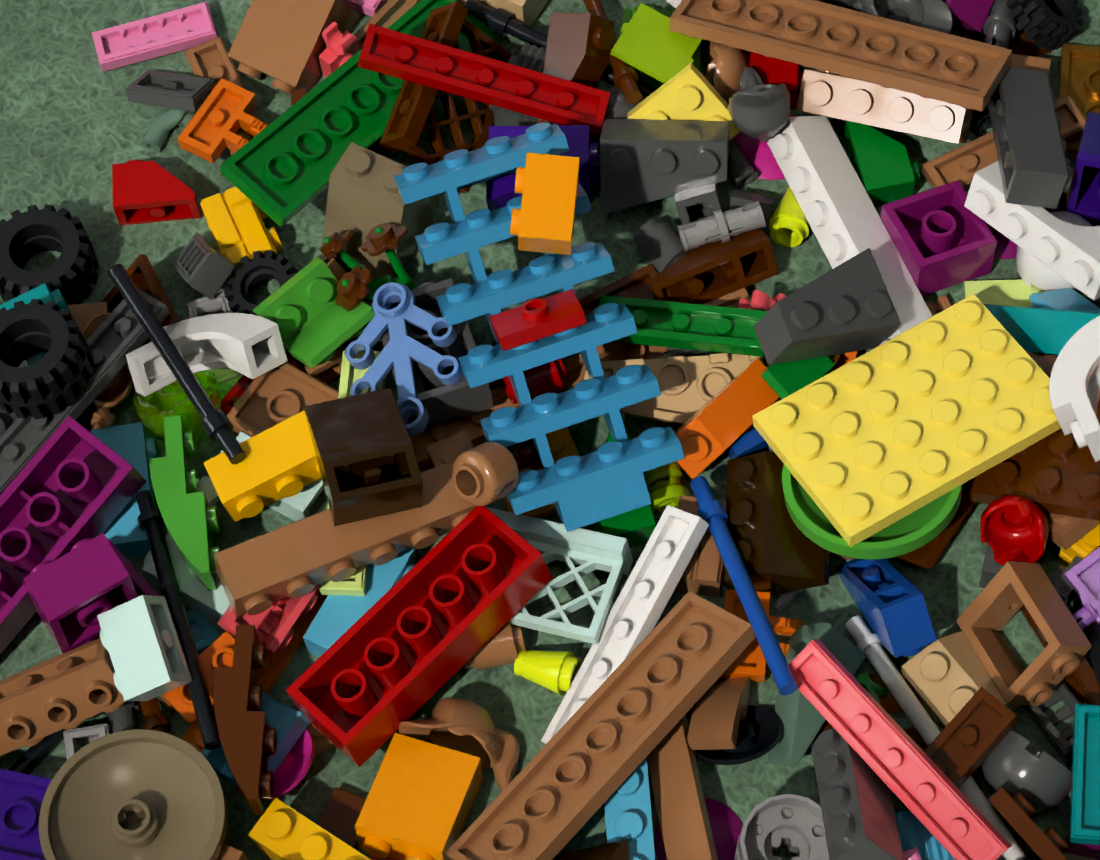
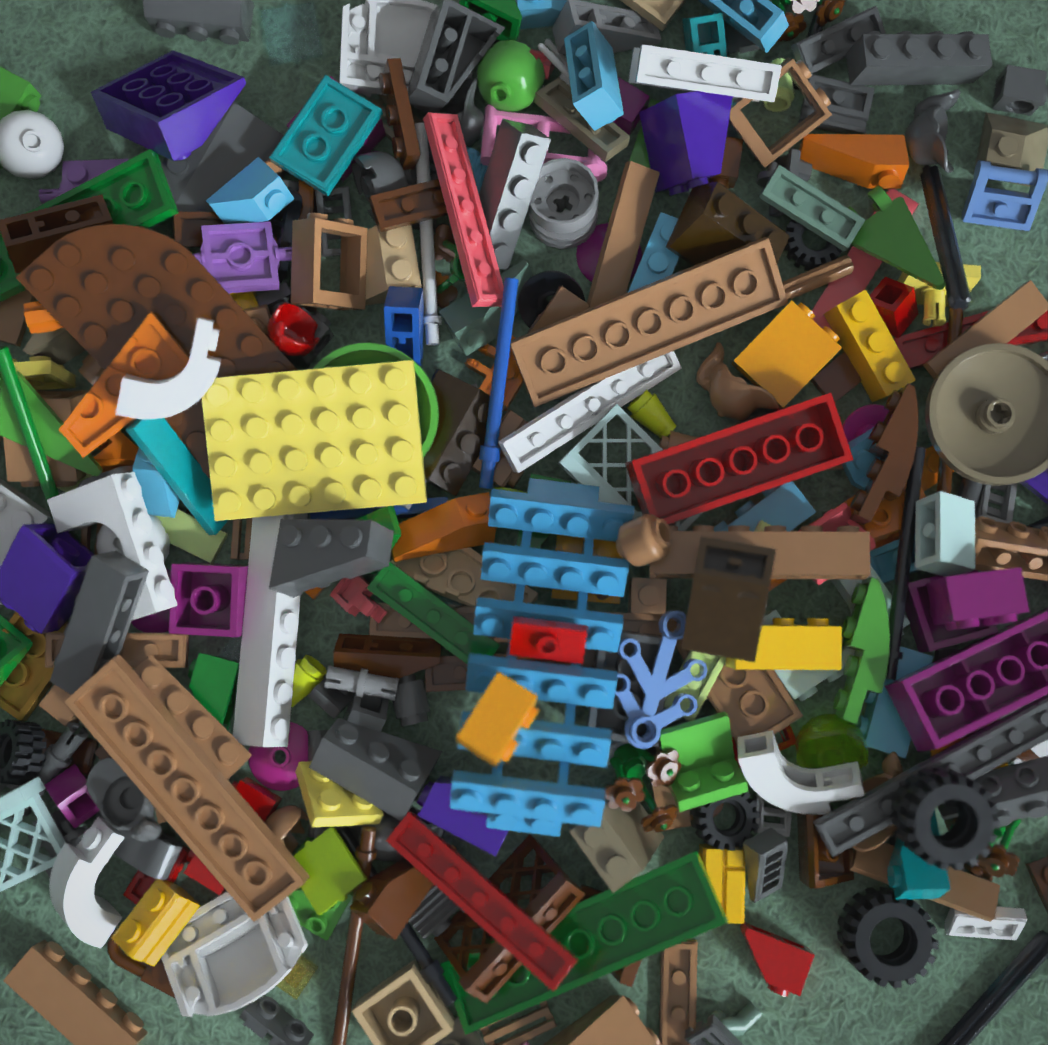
camera: 155 degrees left, 20 degrees up
(214, 422) = (821, 691): black bar -> none
(218, 121) = (696, 996): orange hinge -> none
(339, 49) = (572, 1011): coral plate -> none
(759, 108) = (278, 767): dark grey hair -> none

